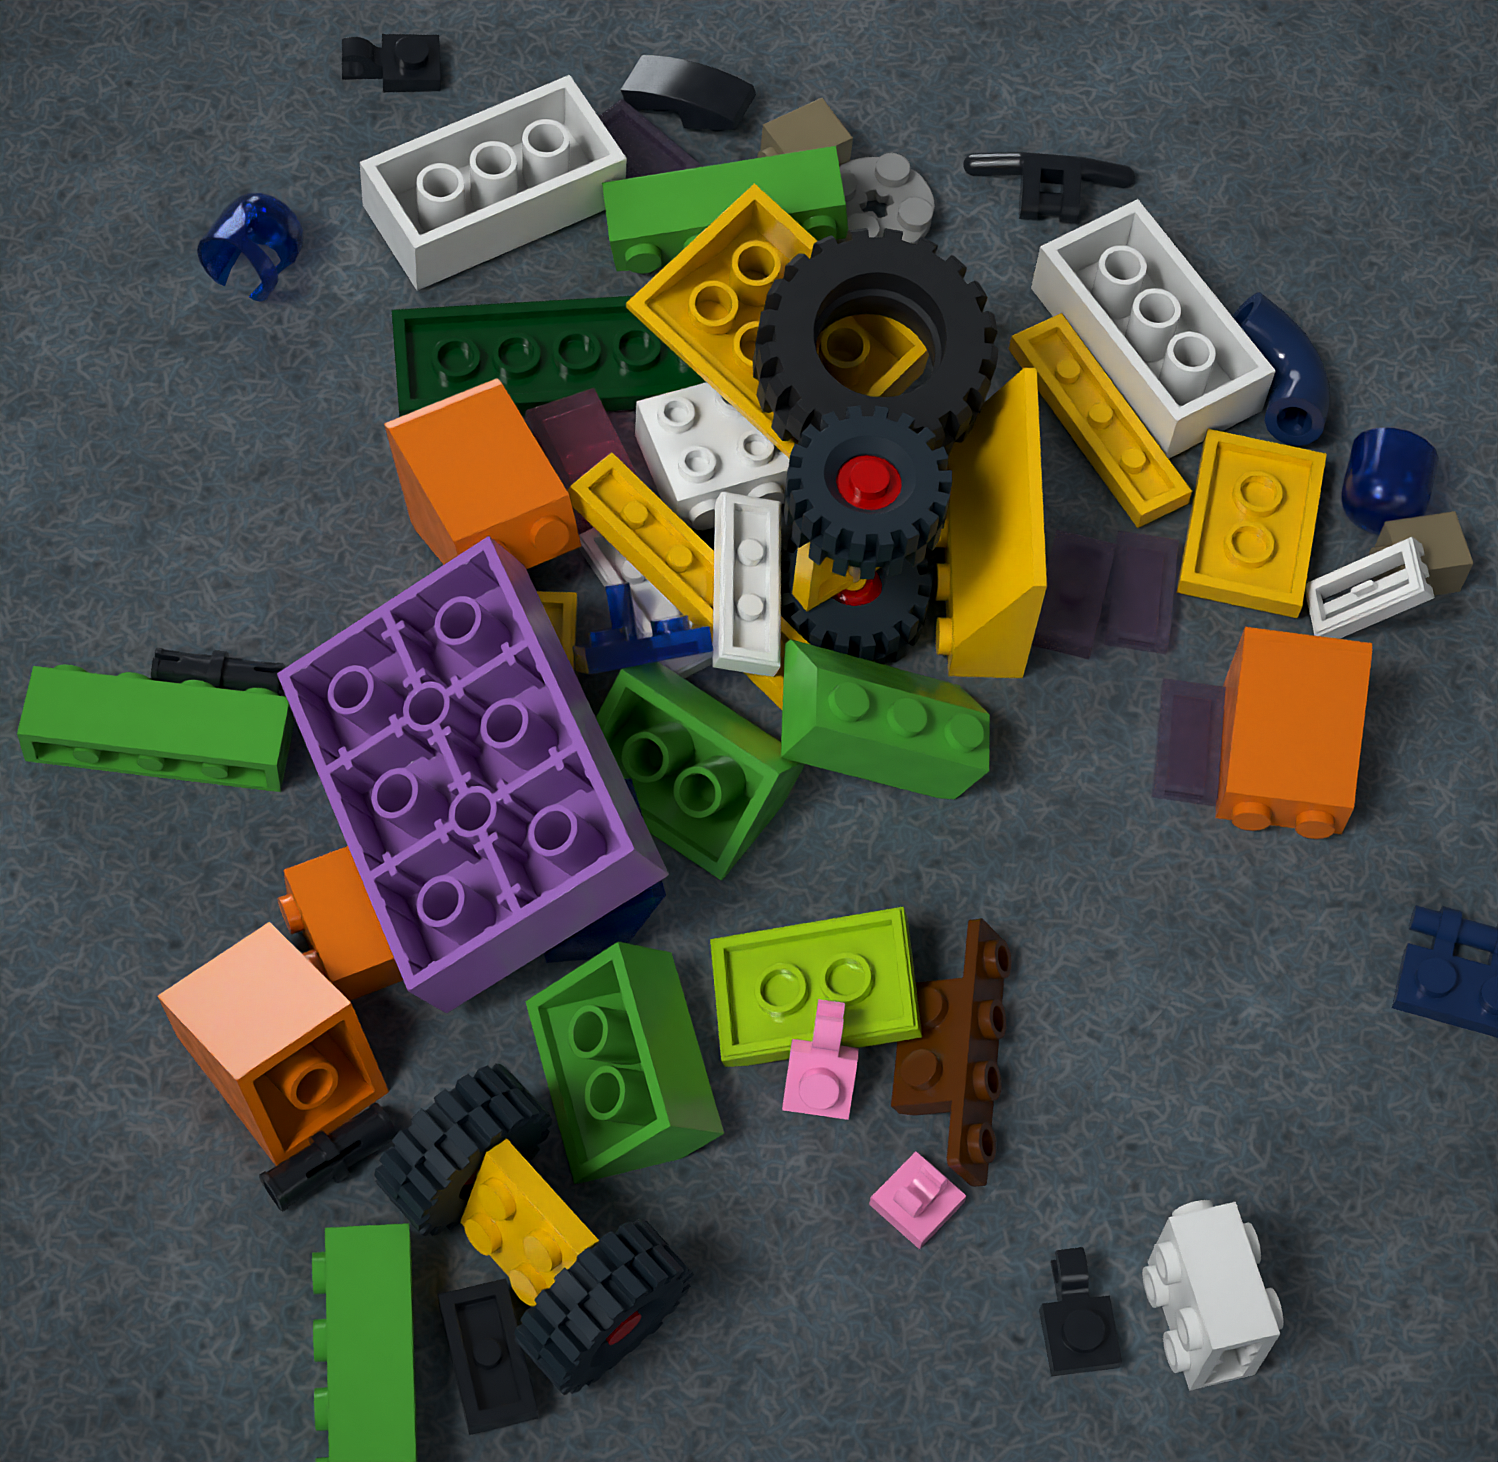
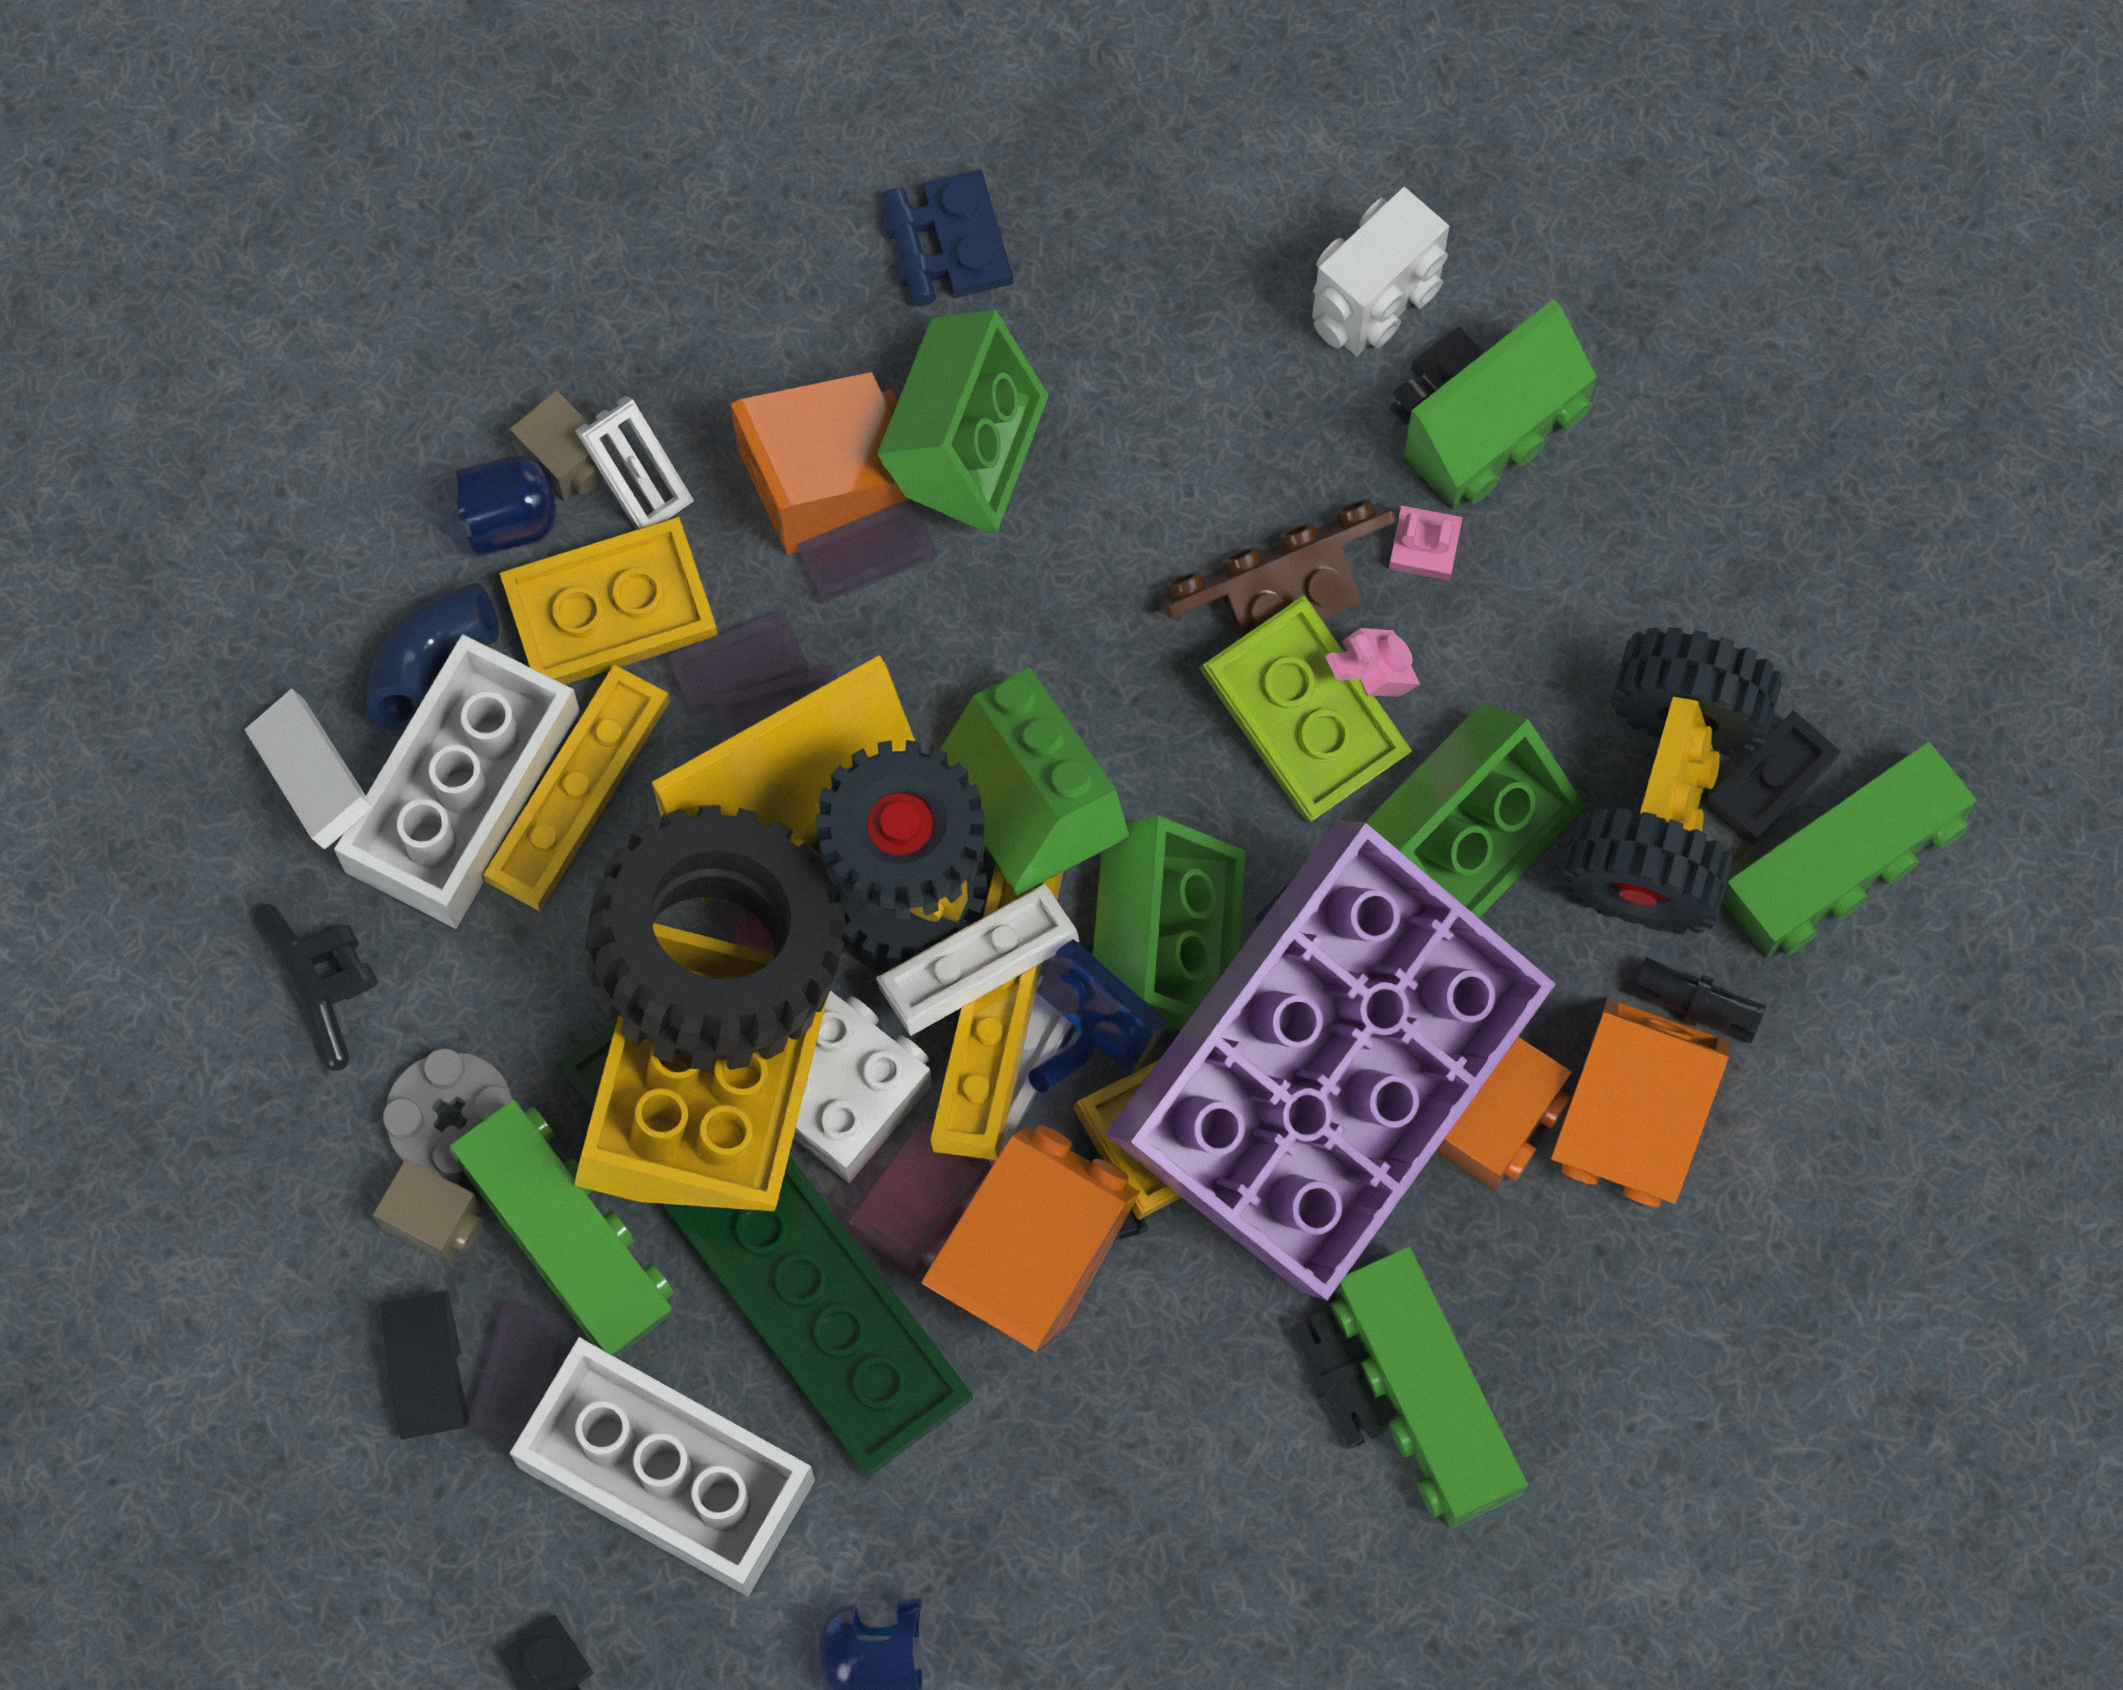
camera: 115 degrees left, 10 degrees up
(1005, 1327) = (1501, 408): none -> bright green slope
(1224, 231) = (308, 769): none -> white tile
(1259, 851) = (964, 419): none -> bright green slope

